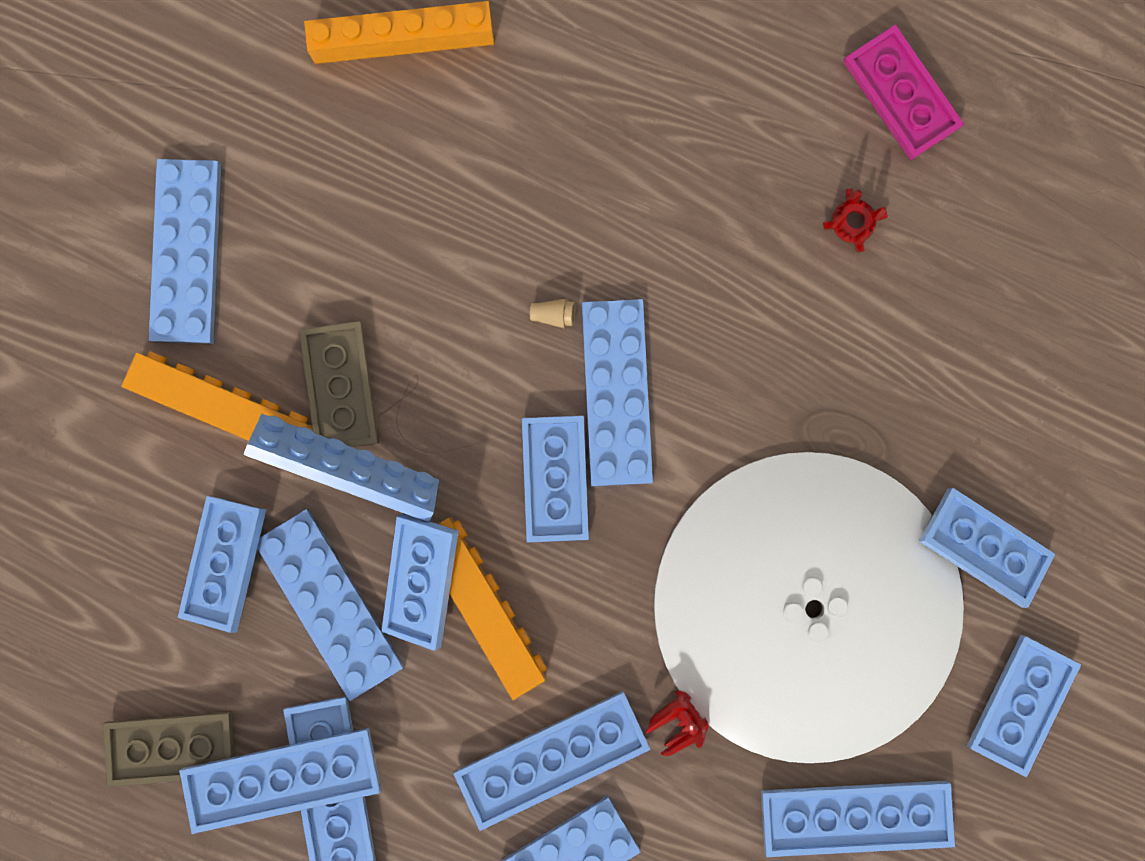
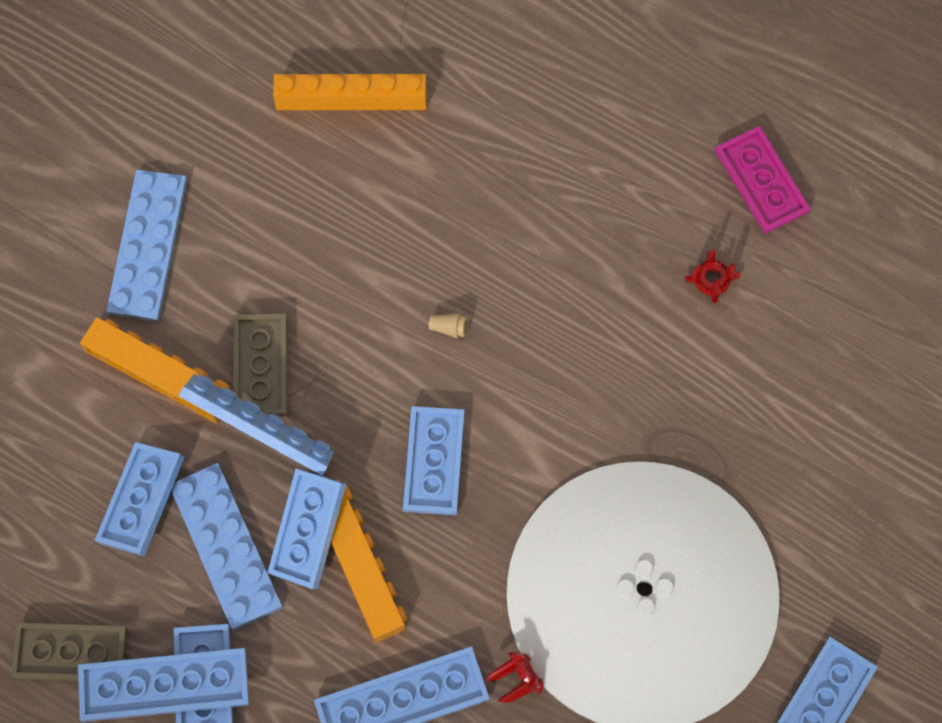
camera: 10 degrees right, 15 degrees down
(617, 392) = (495, 397): light blue plate -> none
(987, 547) = (802, 557): light blue plate -> none

